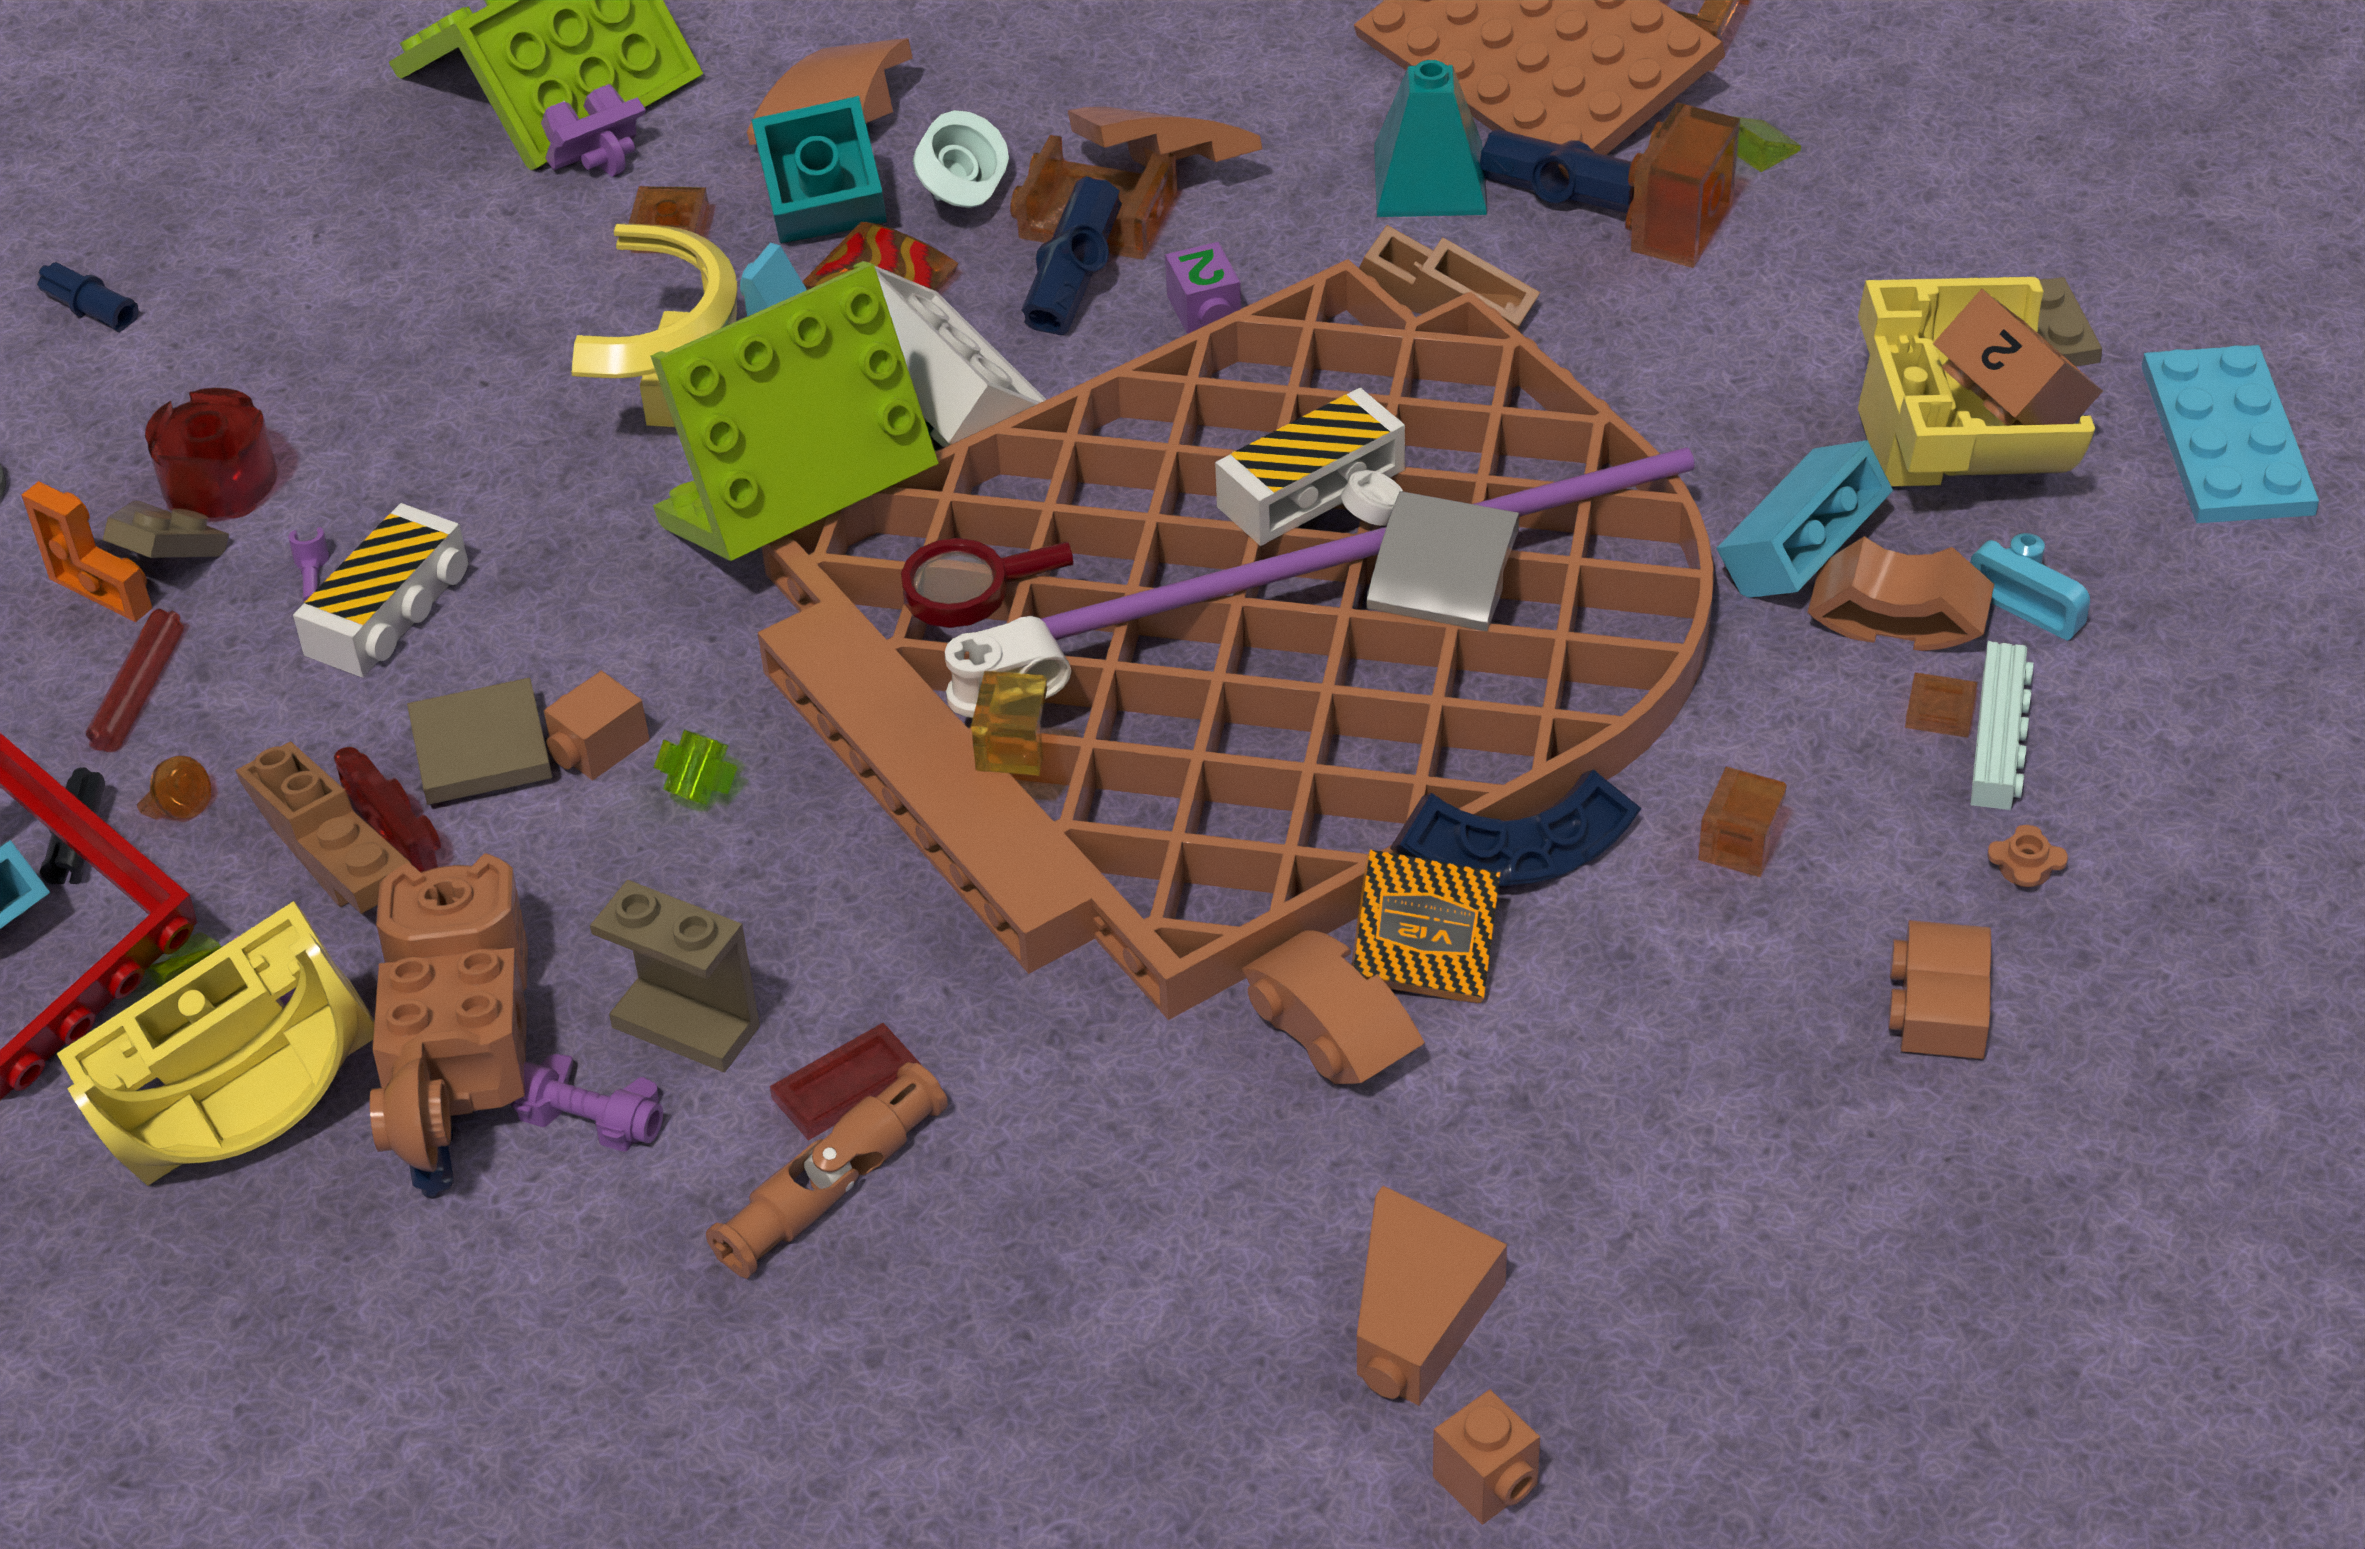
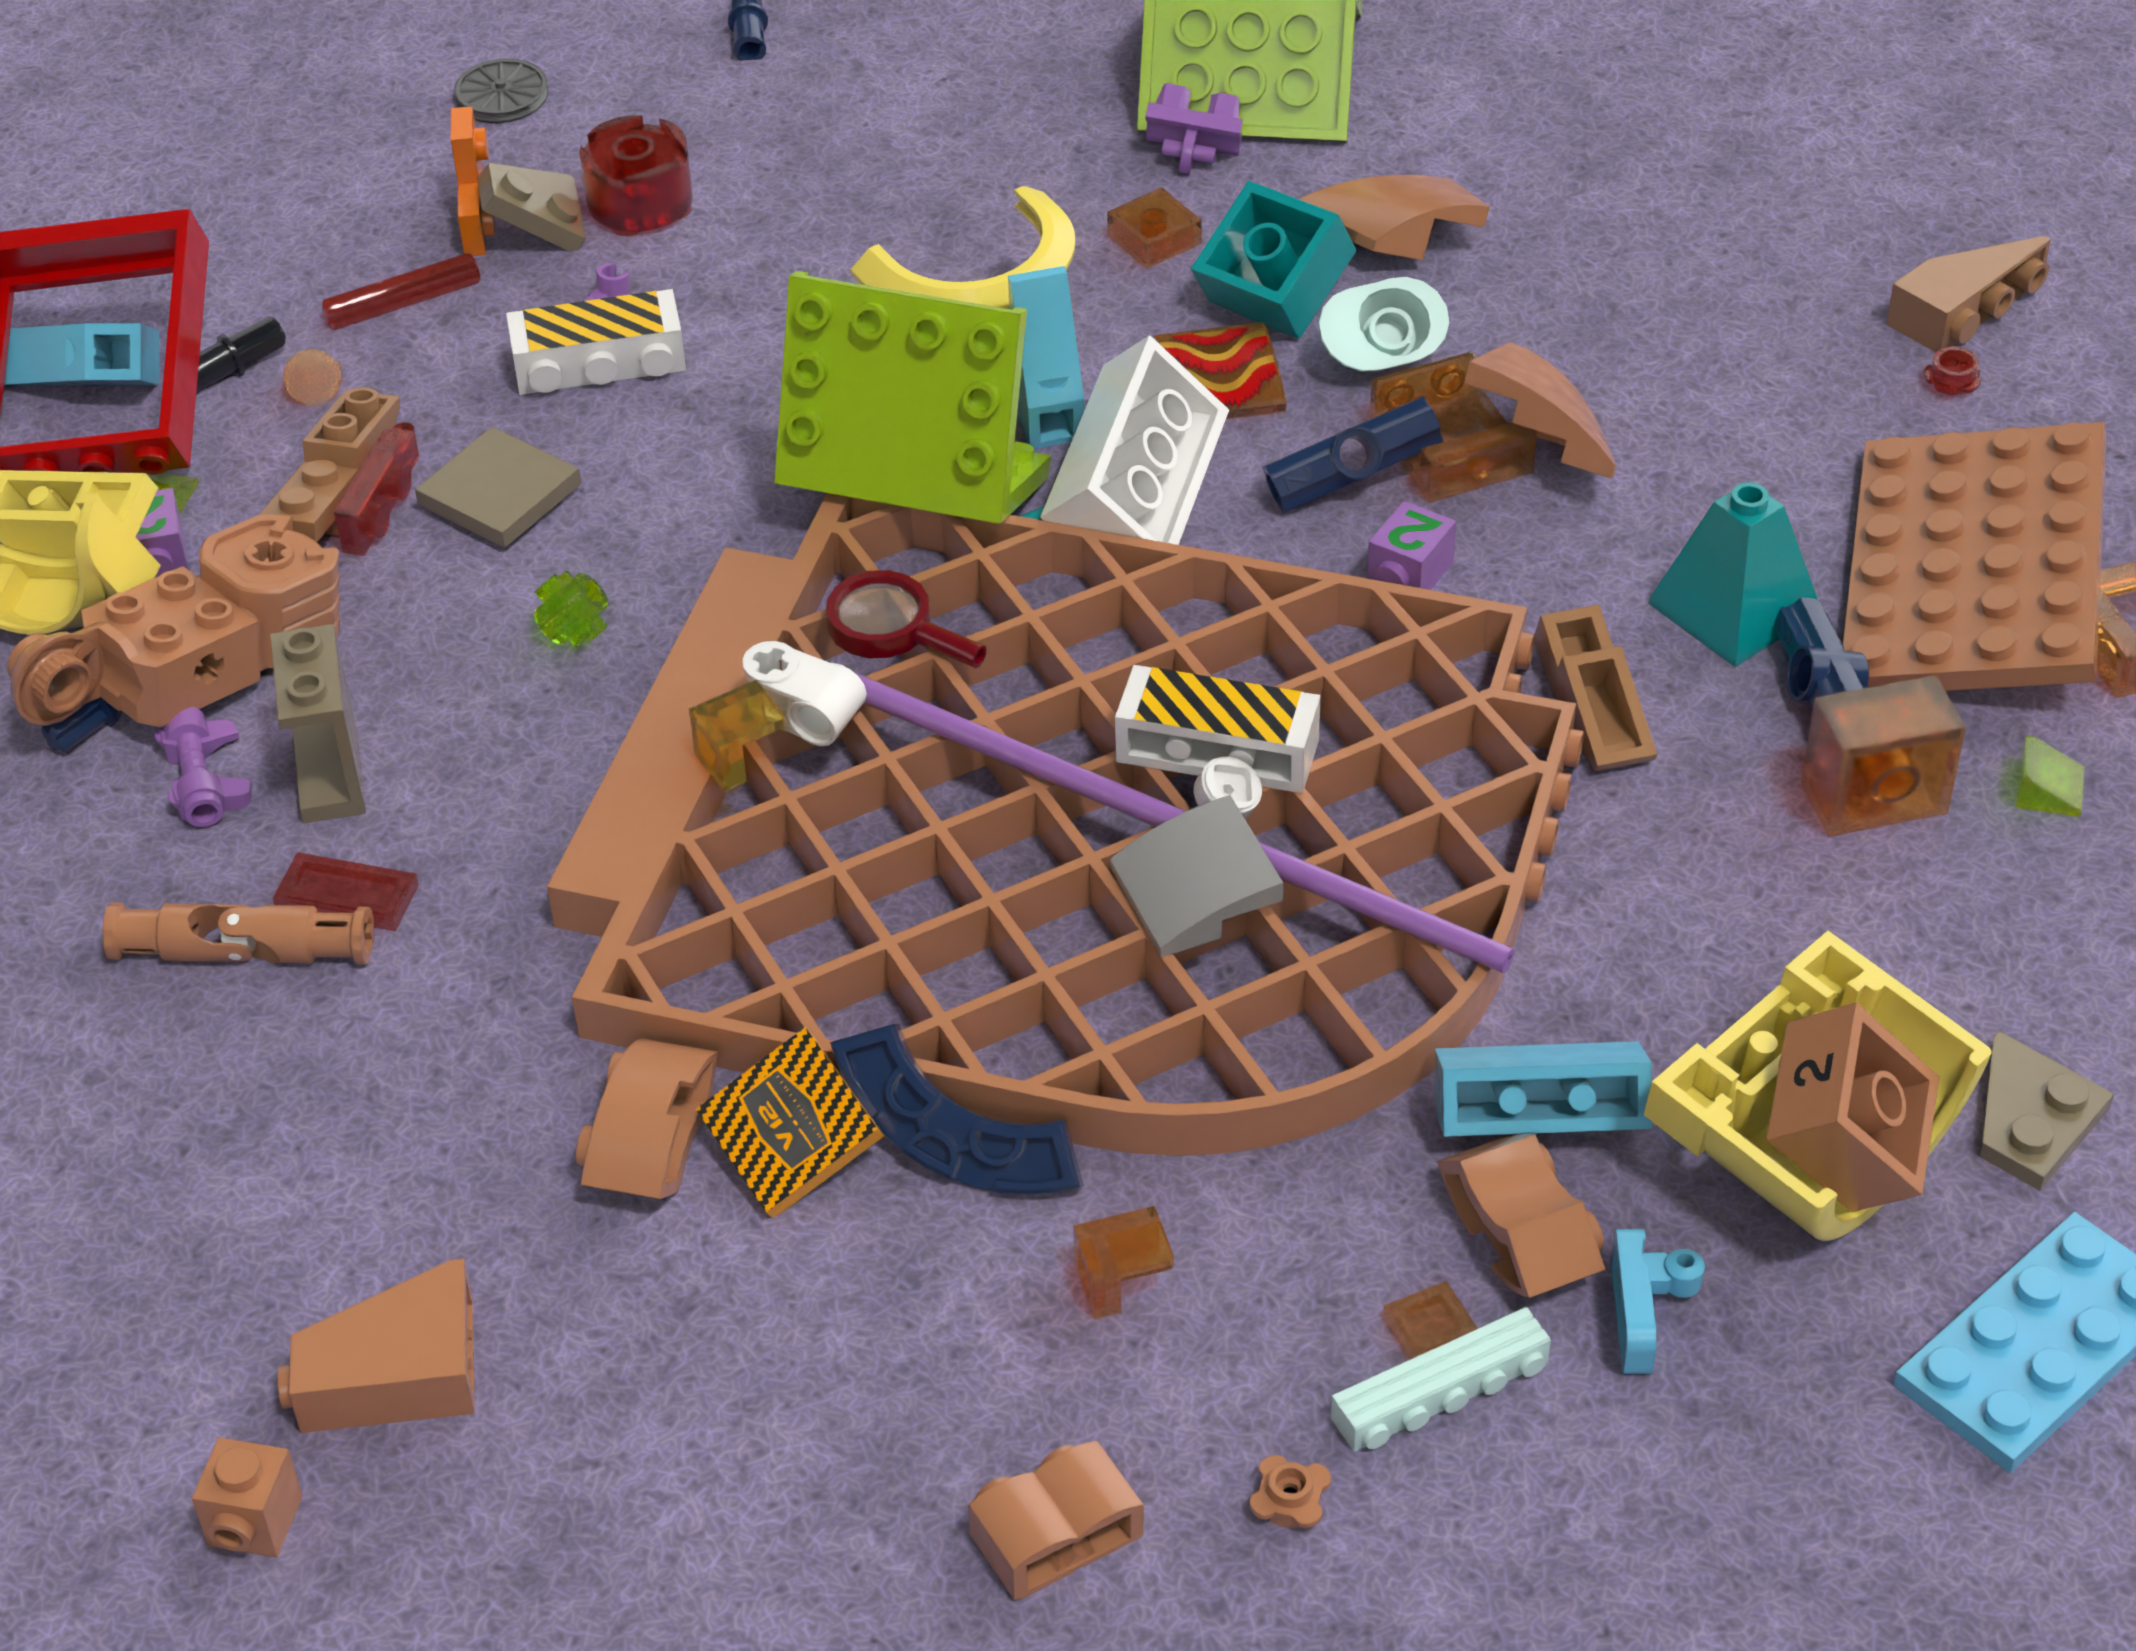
camera: 50 degrees right, 0 degrees up
(595, 726) = (564, 532): nougat brick -> none

